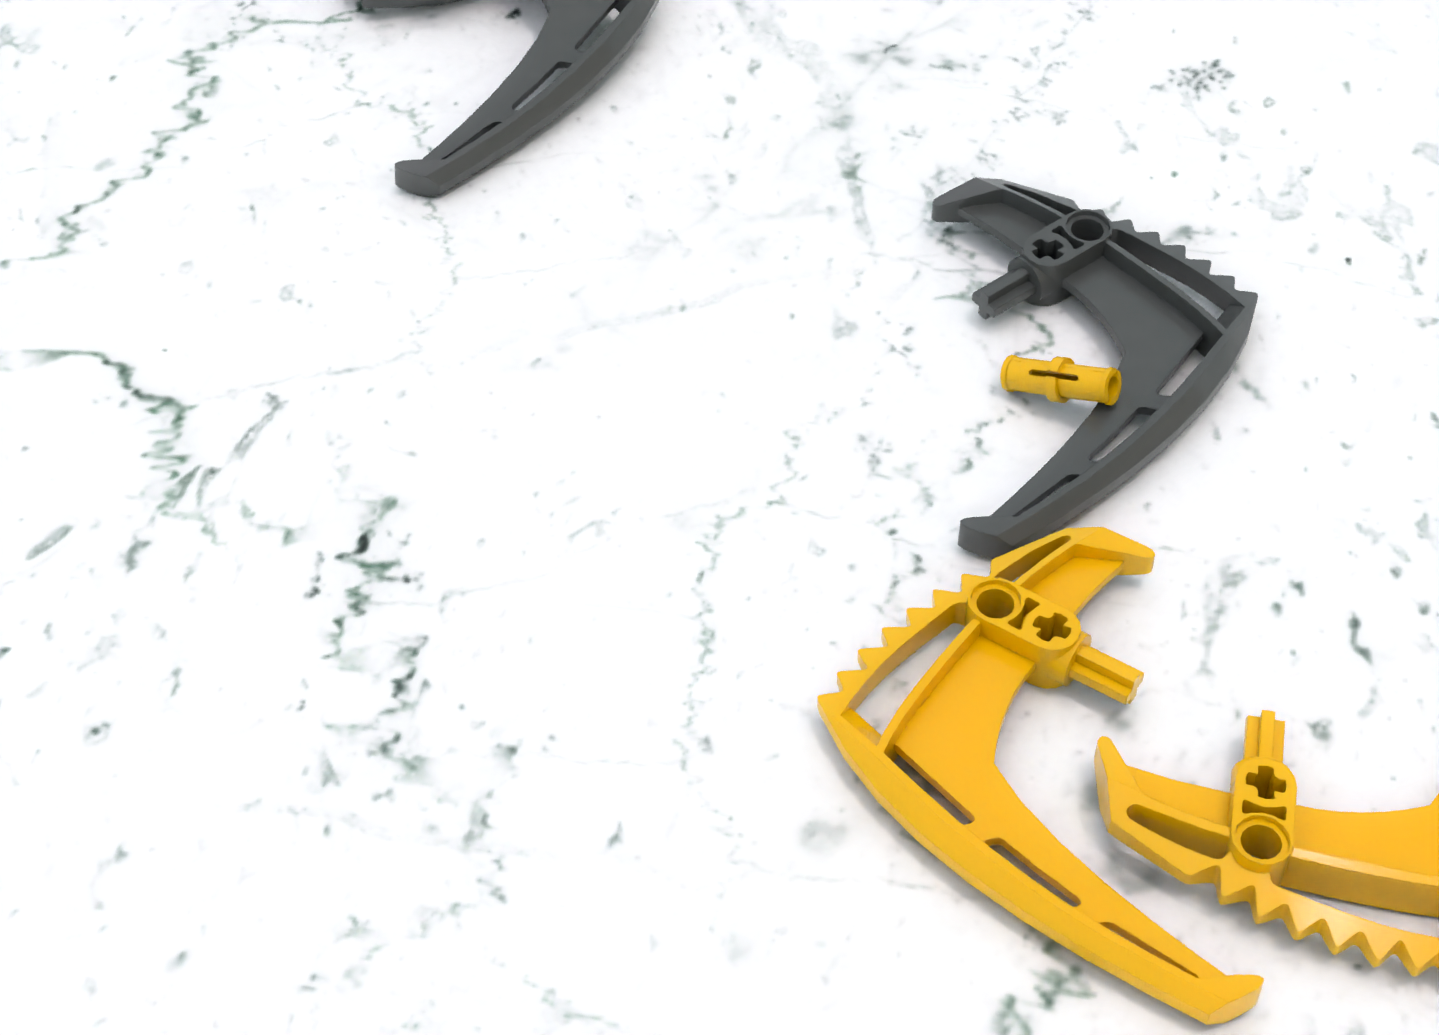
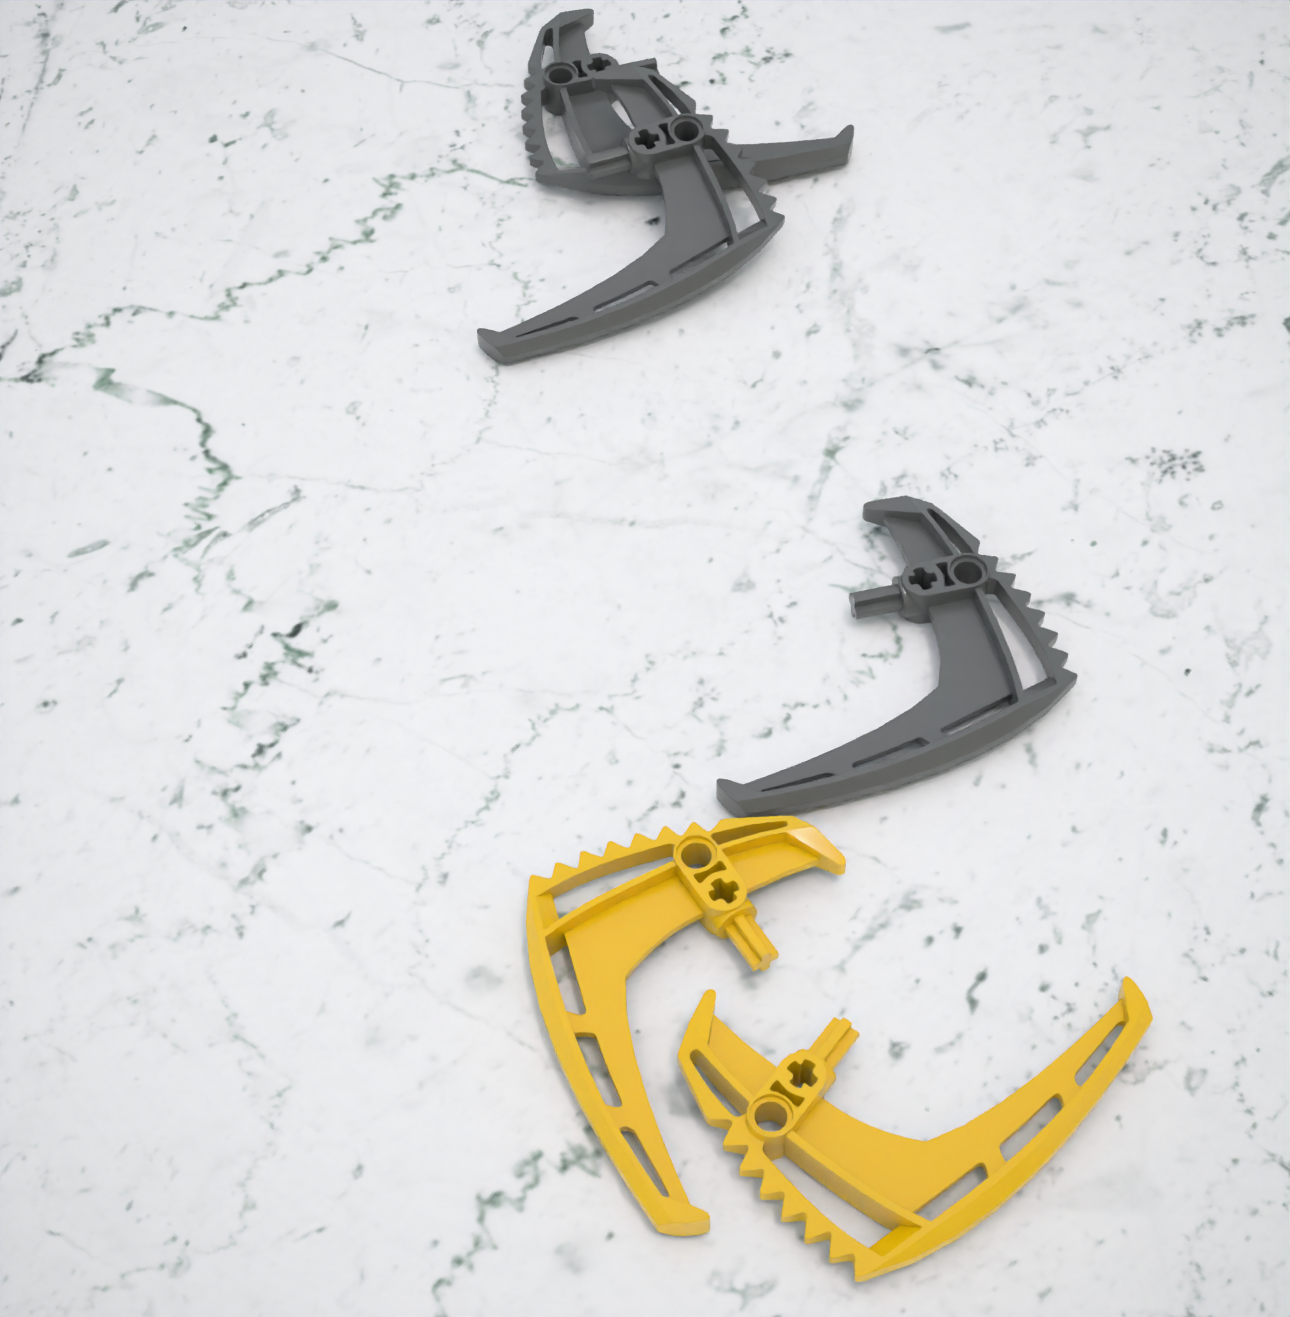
camera: 25 degrees right, 5 degrees up
(1061, 379) = (886, 704): yellow pin -> none

